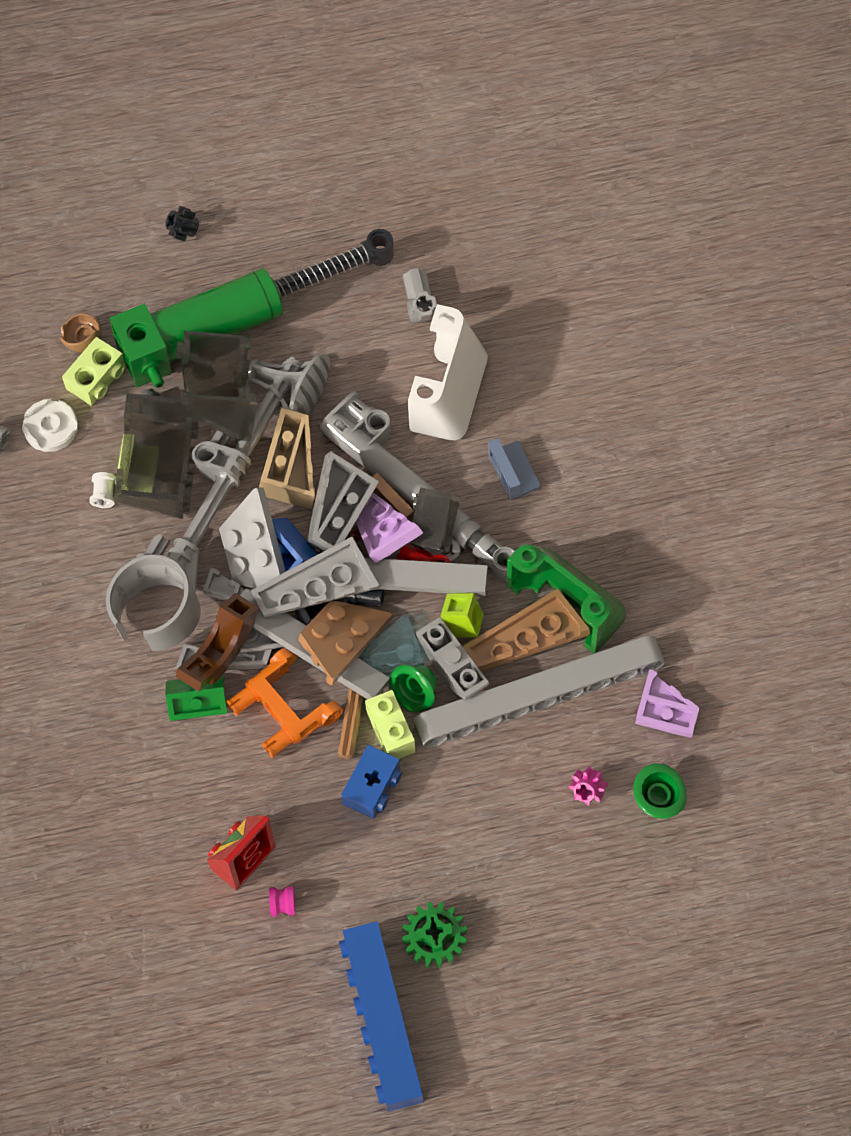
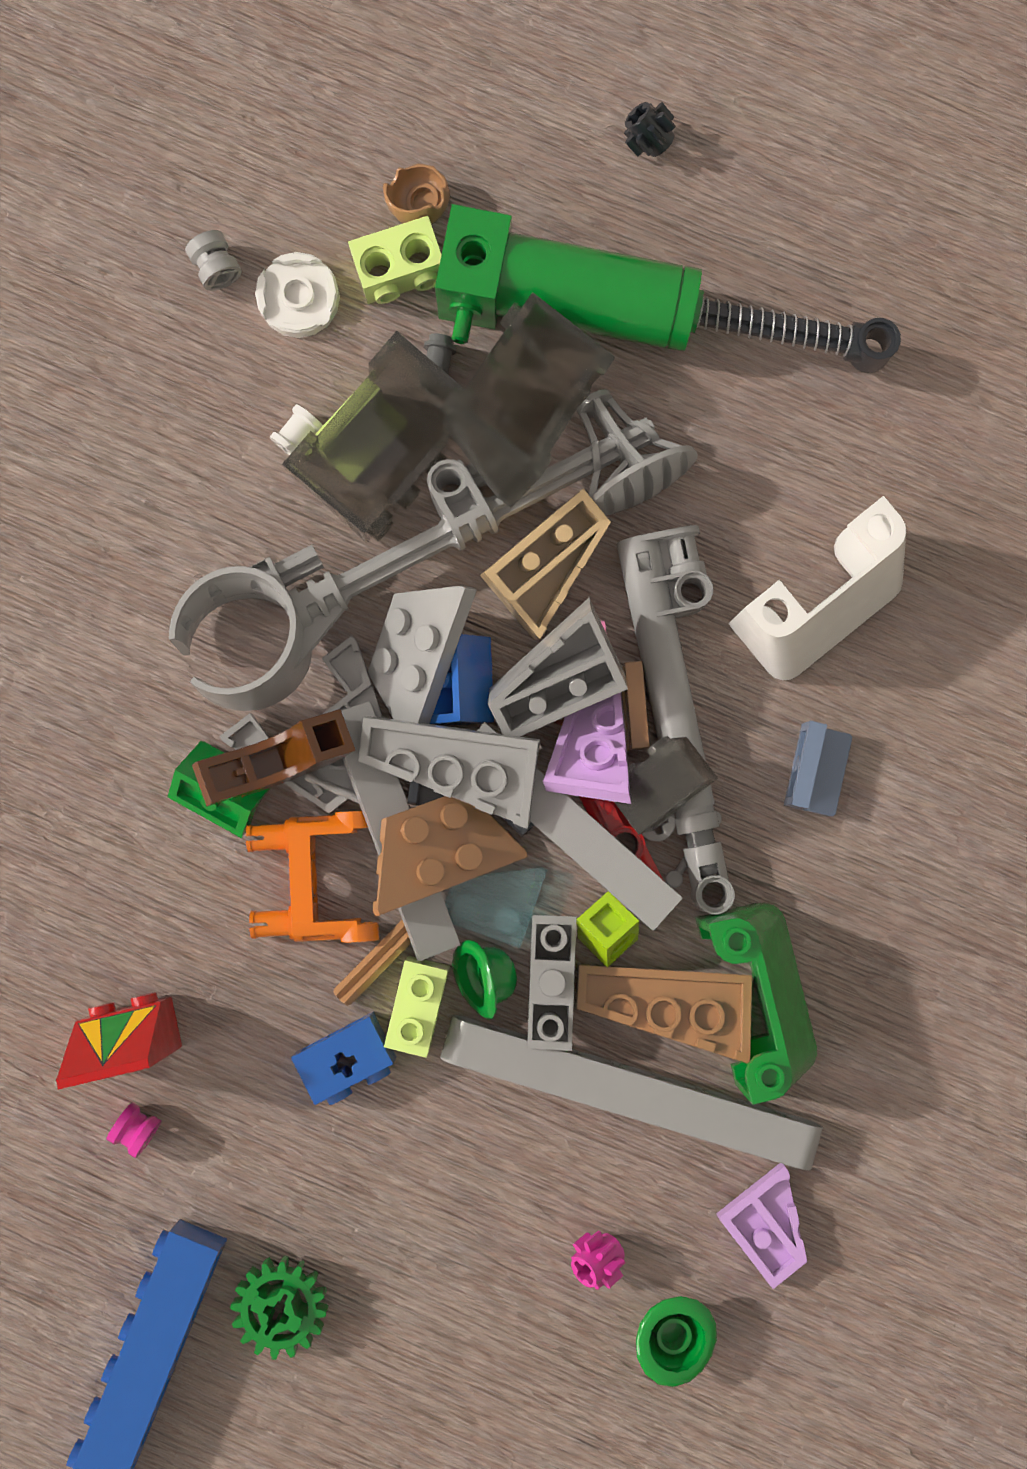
camera: 35 degrees right, 20 degrees up
(420, 302) = (869, 459): light grey piece -> none

